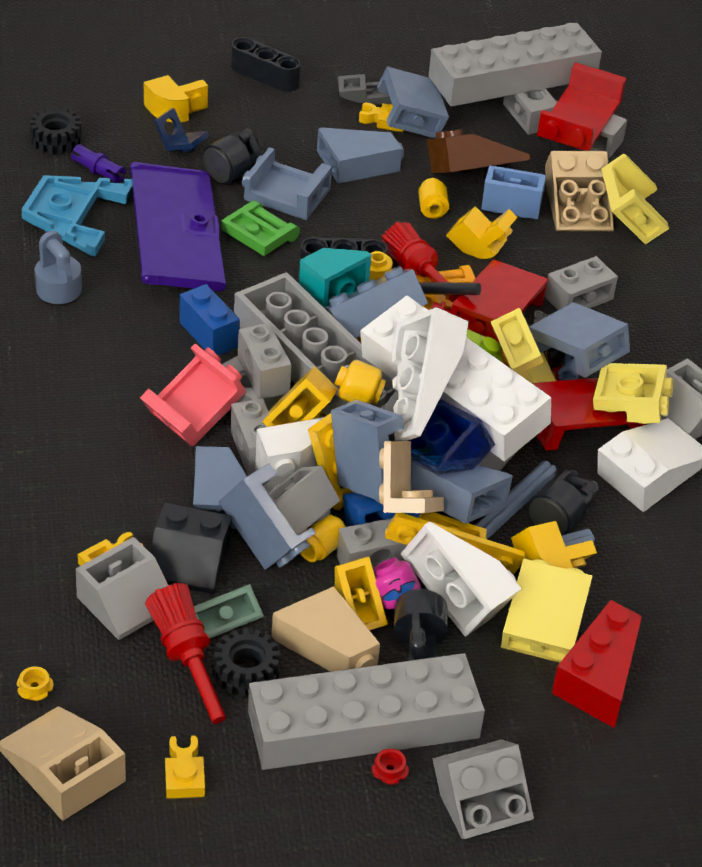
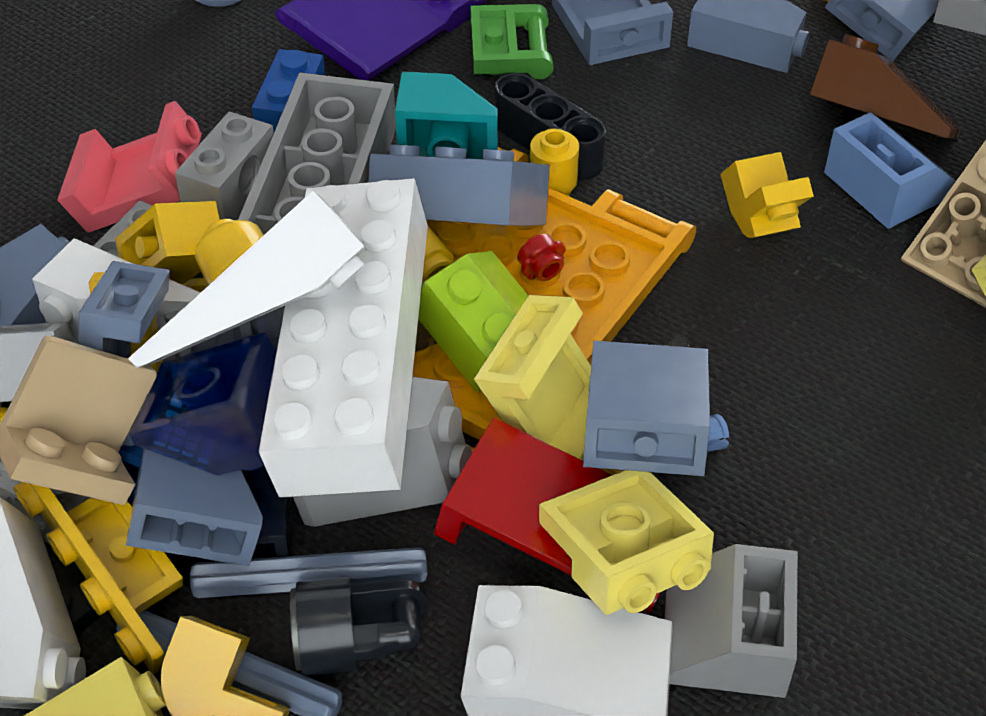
camera: 50 degrees right, 5 degrees up
(413, 252) = (627, 173): red piece -> none
(433, 198) = (769, 121): yellow brick -> none
(450, 288) = (577, 223): black bar -> none
(502, 291) = (651, 285): red panel -> none
(583, 283) = (816, 349): light grey brick -> none

